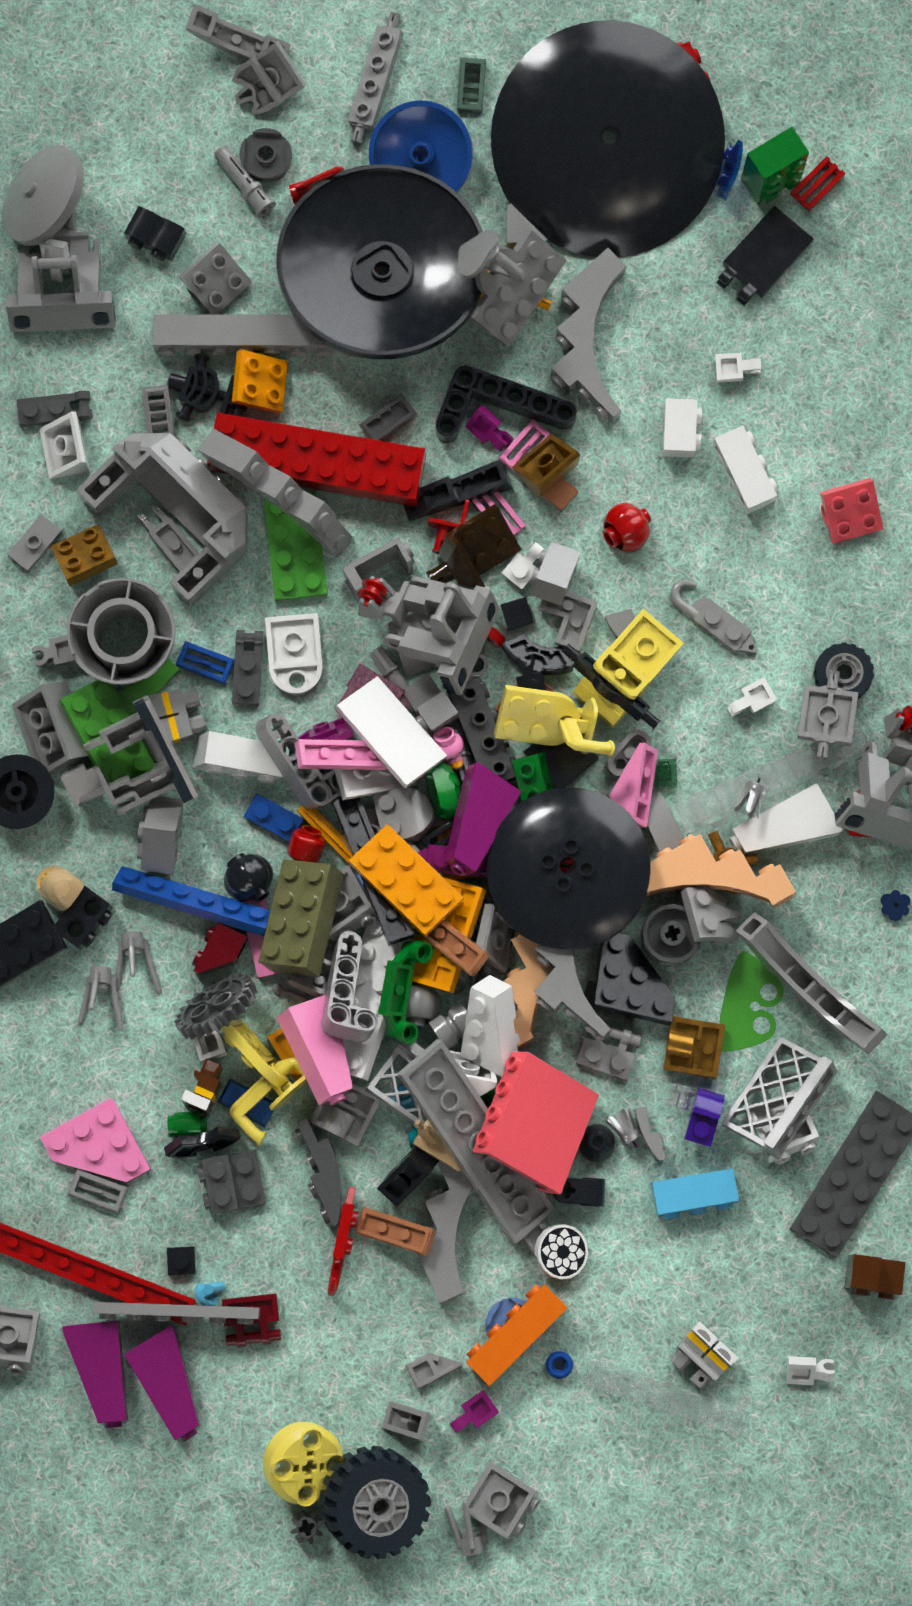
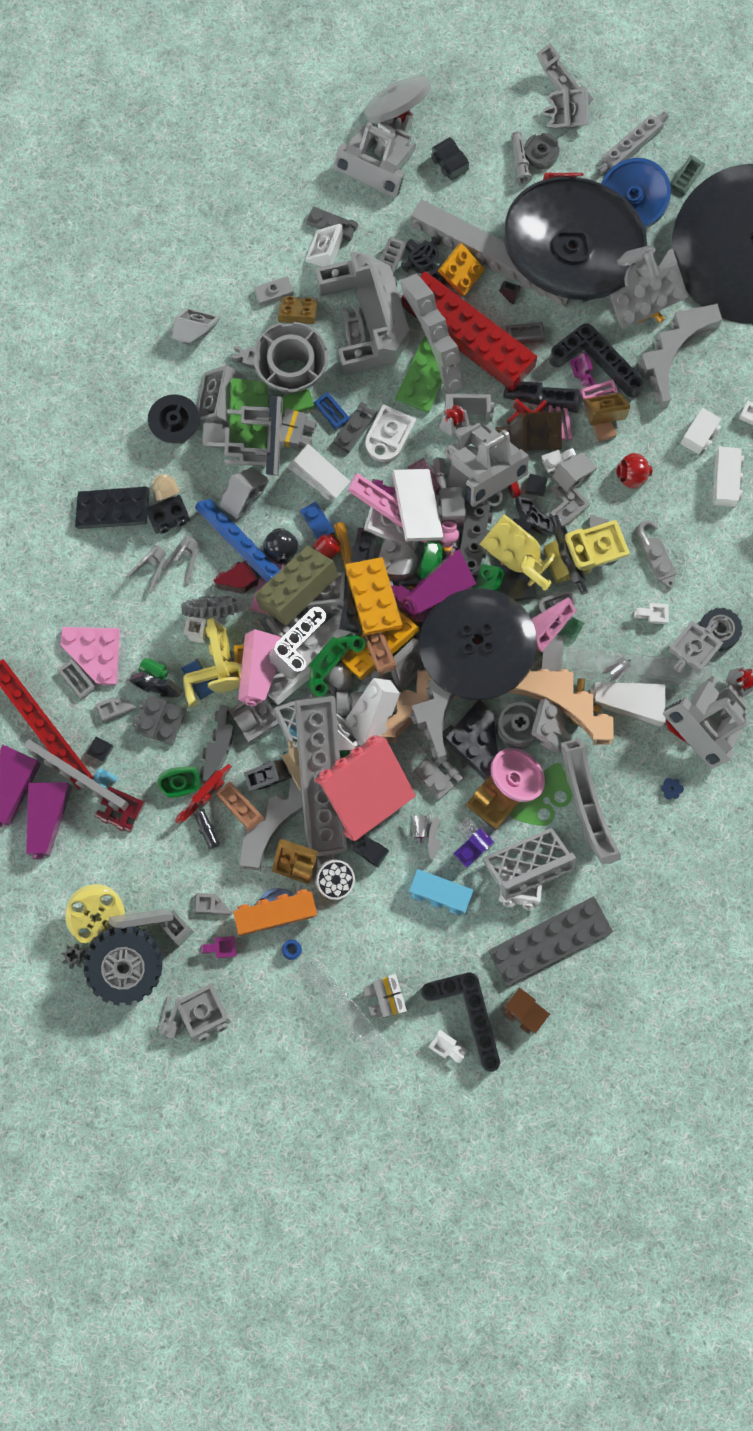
camera: 30 degrees right, 5 degrees down
(165, 1201) = (113, 708): none -> light grey tile
(206, 1089) = (176, 654): reddish brown hips -> none
(215, 279) = (470, 200): light grey plate -> none
(288, 764) = (344, 509): light grey beam -> none
(303, 1244) = (179, 781): none -> green piece
(335, 372) = (509, 291): none -> black slope
(362, 1436) = (141, 918): none -> light grey tile
(370, 1281) = (206, 829): none -> black pin
(502, 1259) = (294, 861): none -> pearl gold plate
(597, 1143) = (397, 826): black brick -> none
(709, 988) = (517, 775): none -> bright pink dish
(814, 1313) = (486, 1030): none -> black beam

